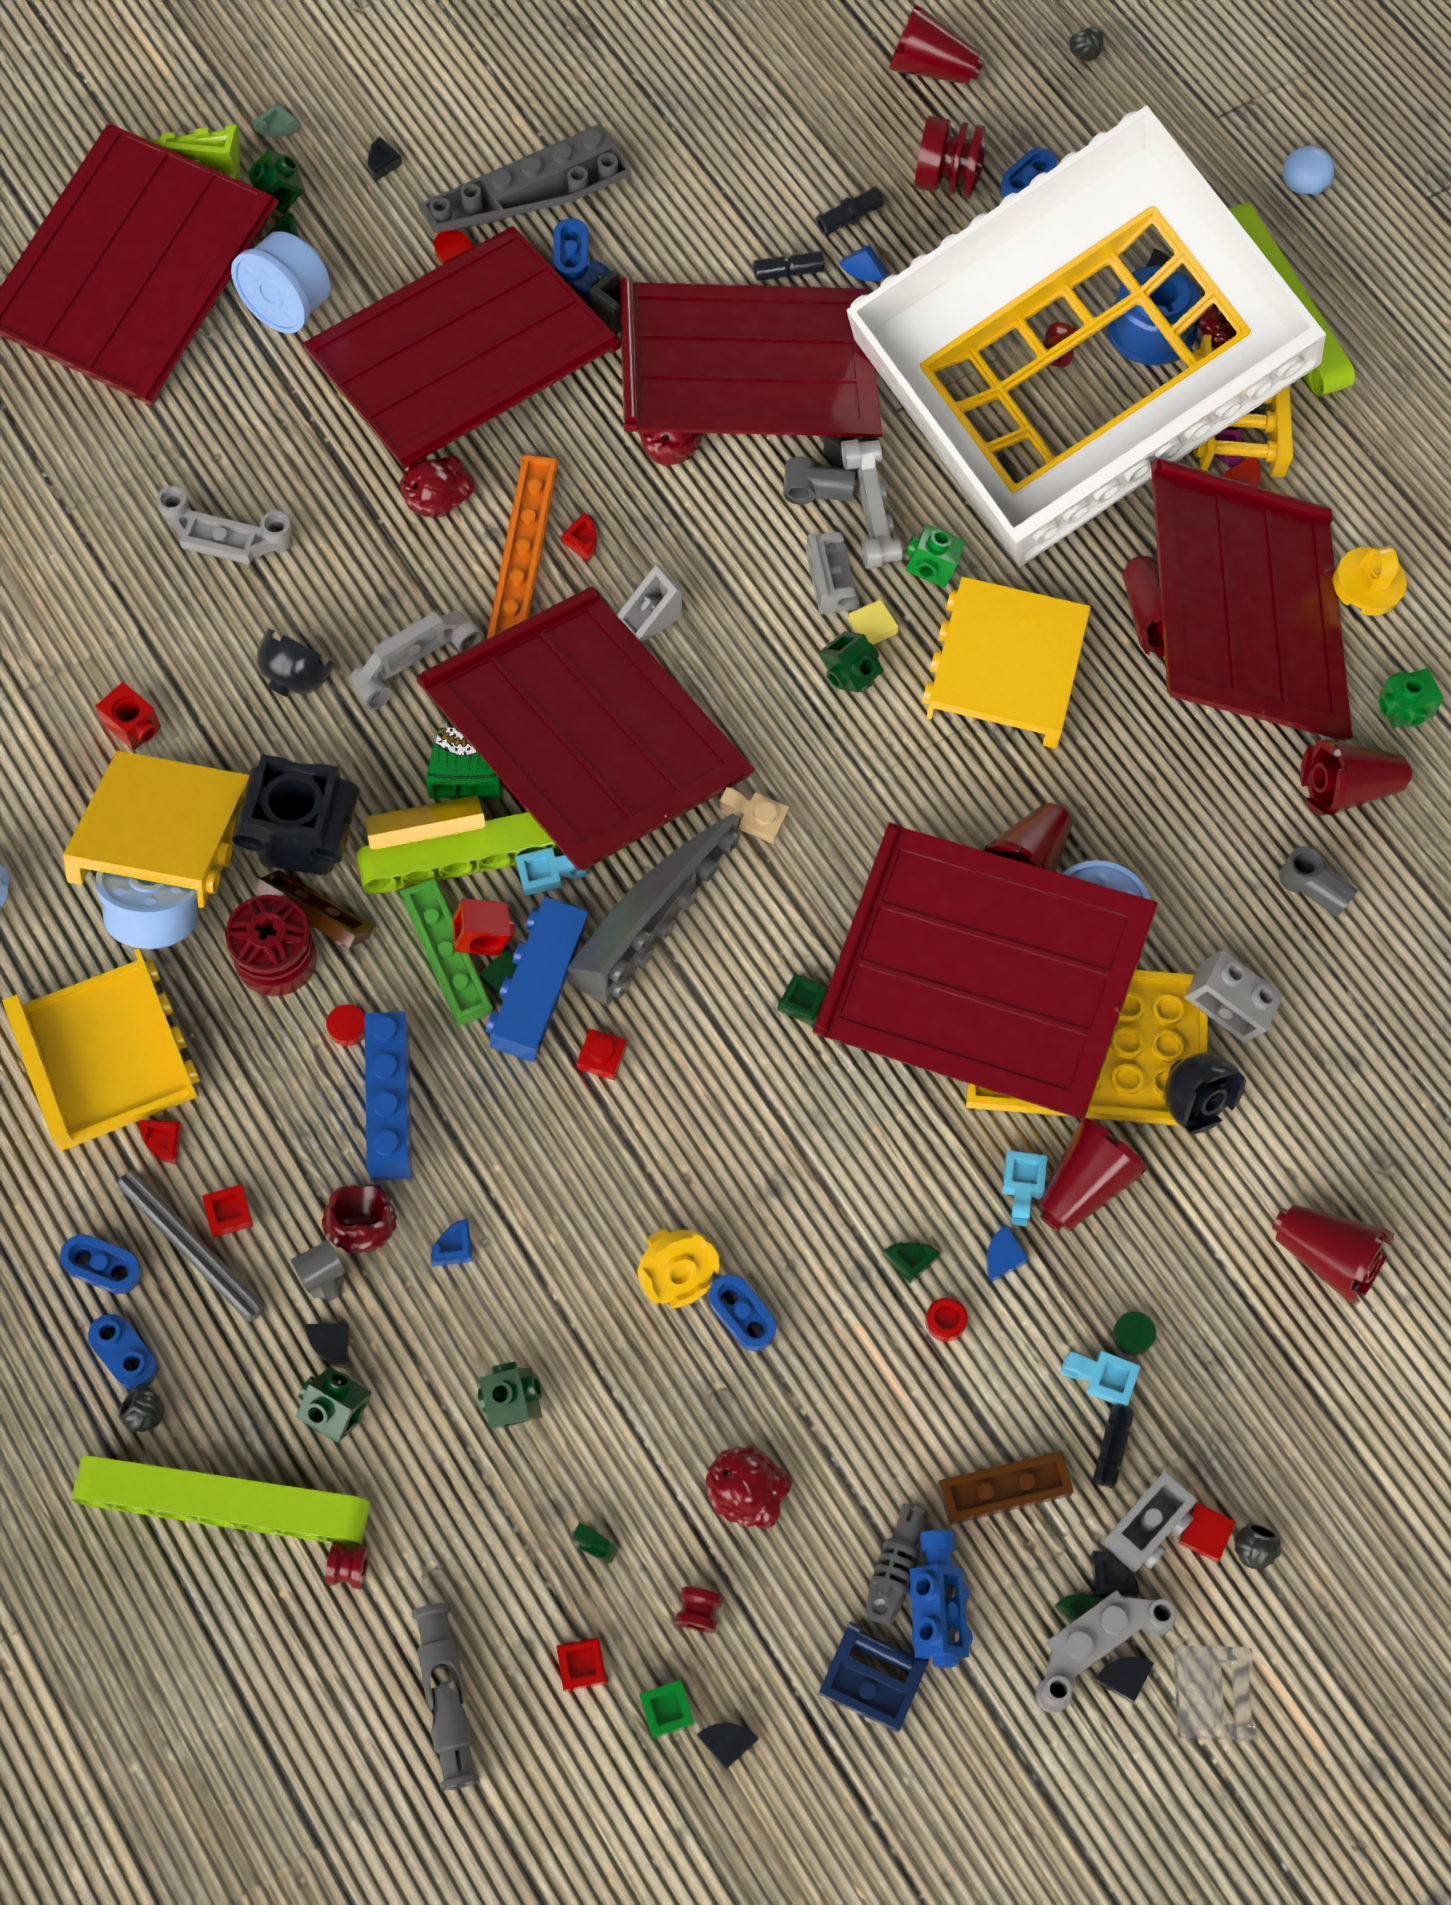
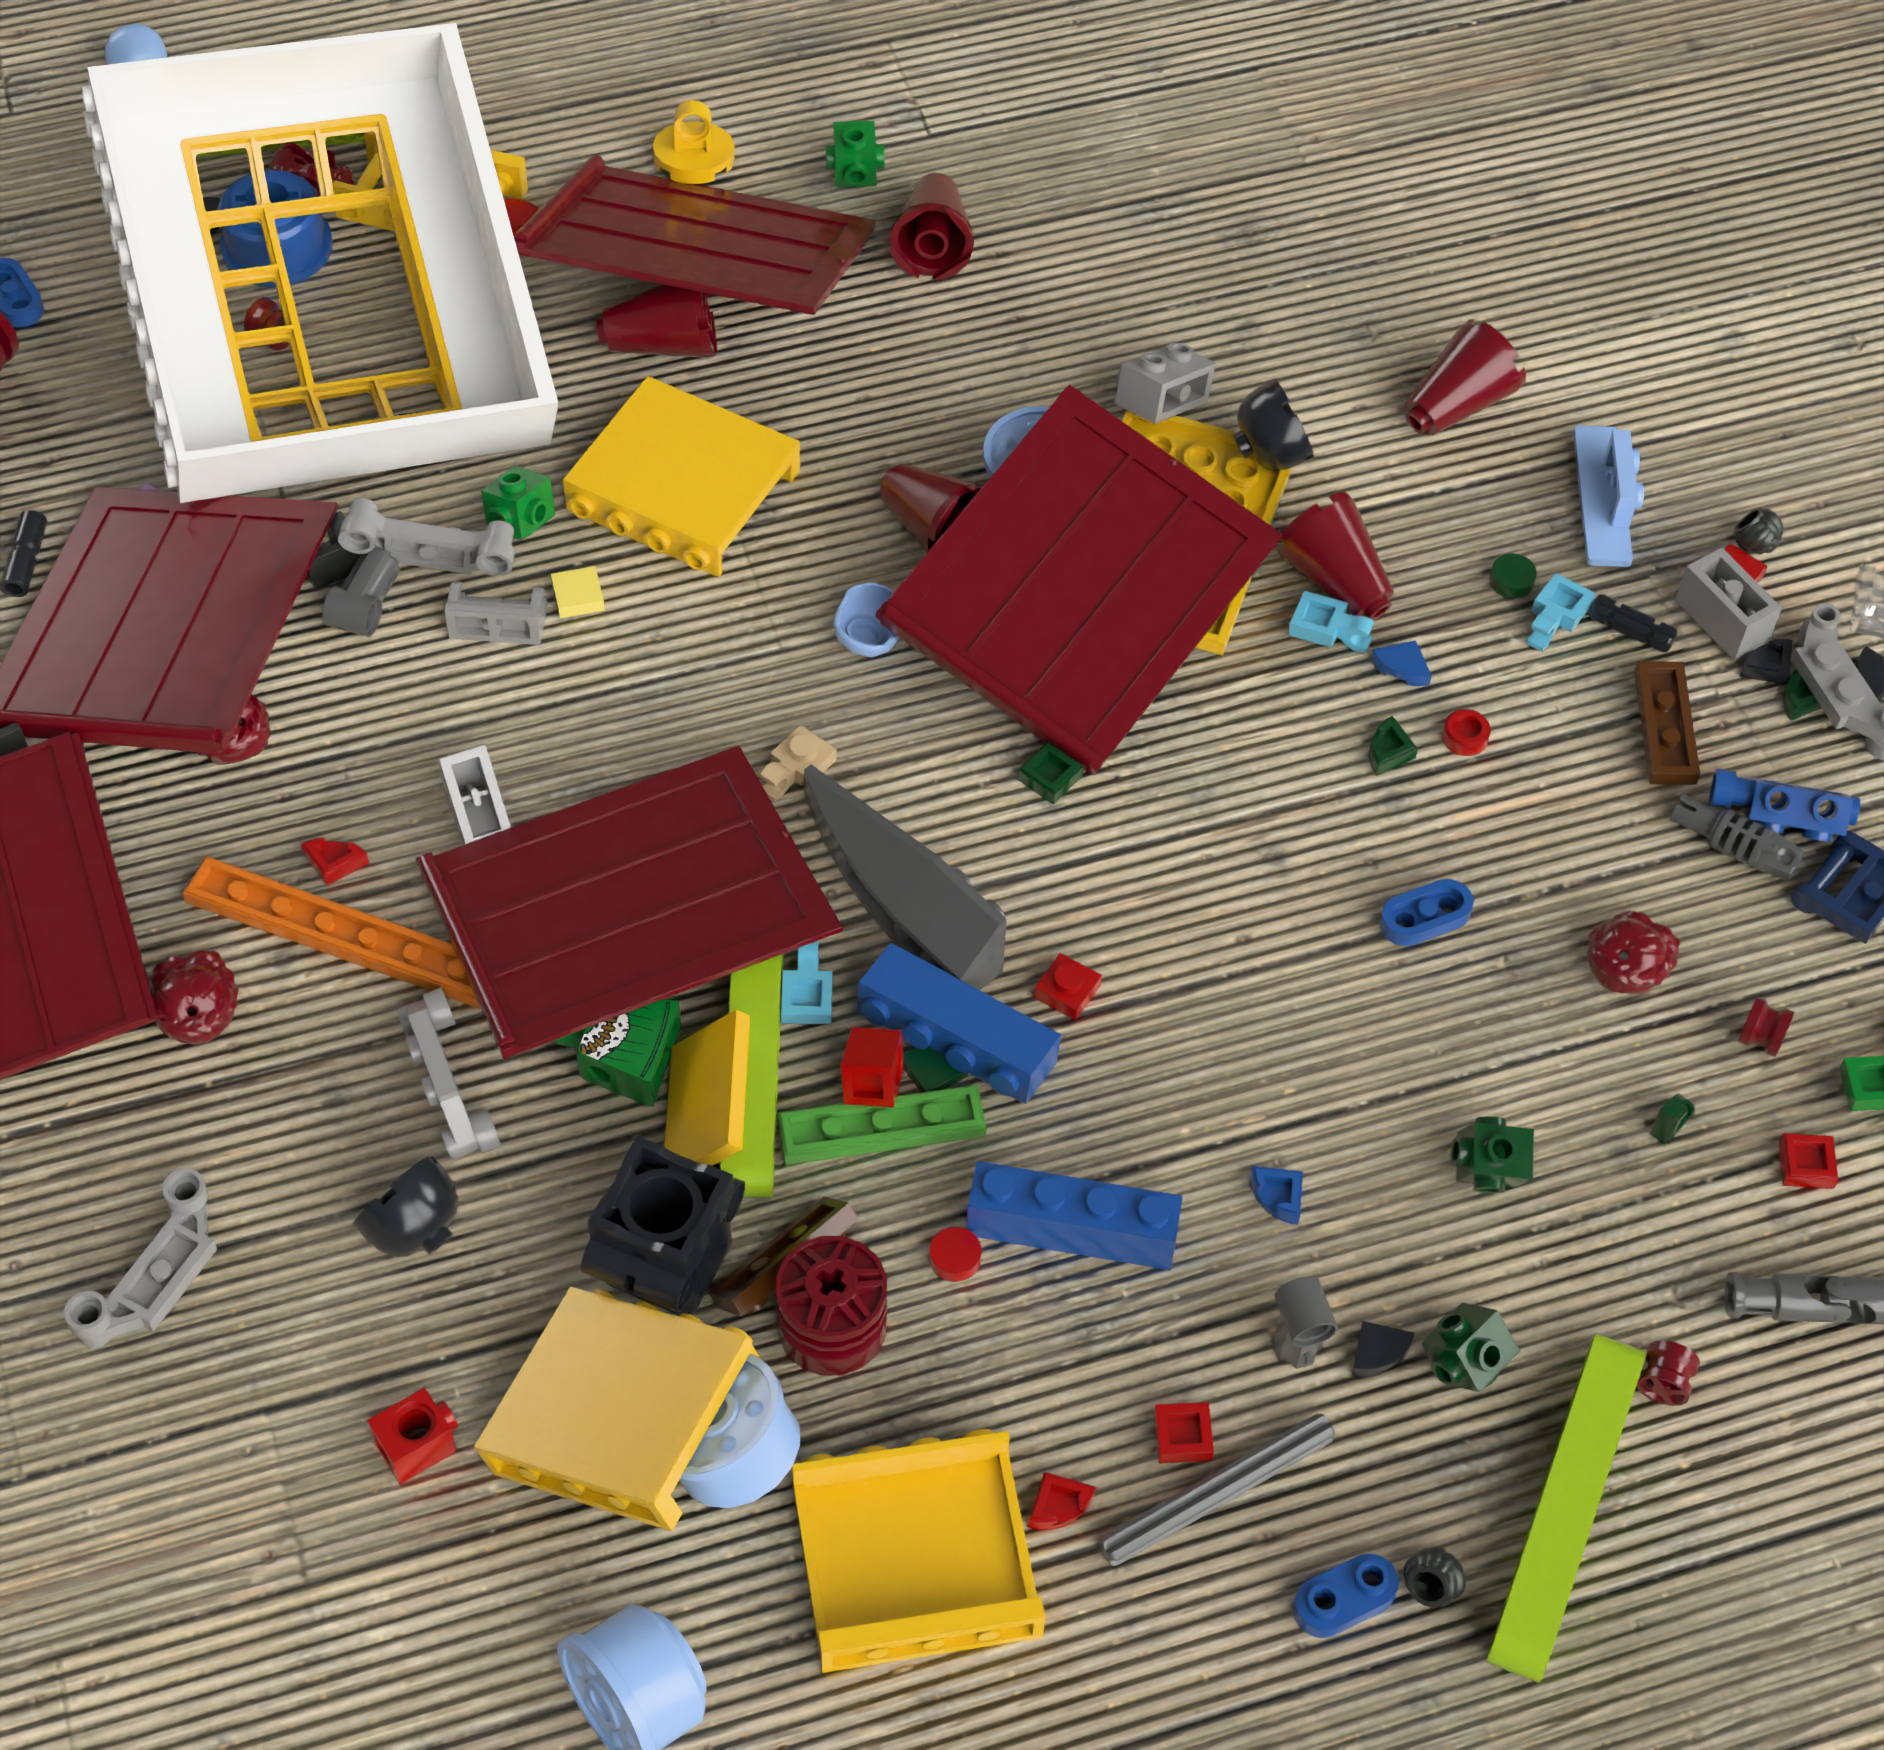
camera: 75 degrees left, 10 degrees down
(103, 1264) = (1222, 1601): blue plate -> none
(359, 1218) = (1231, 1277): dark red hair -> none
(677, 1267) = (1359, 957): yellow tile -> none
(851, 662) = (634, 613): dark green brick -> none
(864, 265) = (62, 478): blue tile -> none
(907, 814) = (856, 621): none -> light blue hair
(1256, 1399) = (1607, 492): none -> light blue bracket
(1319, 883) = (1035, 290): dark grey piece -> none

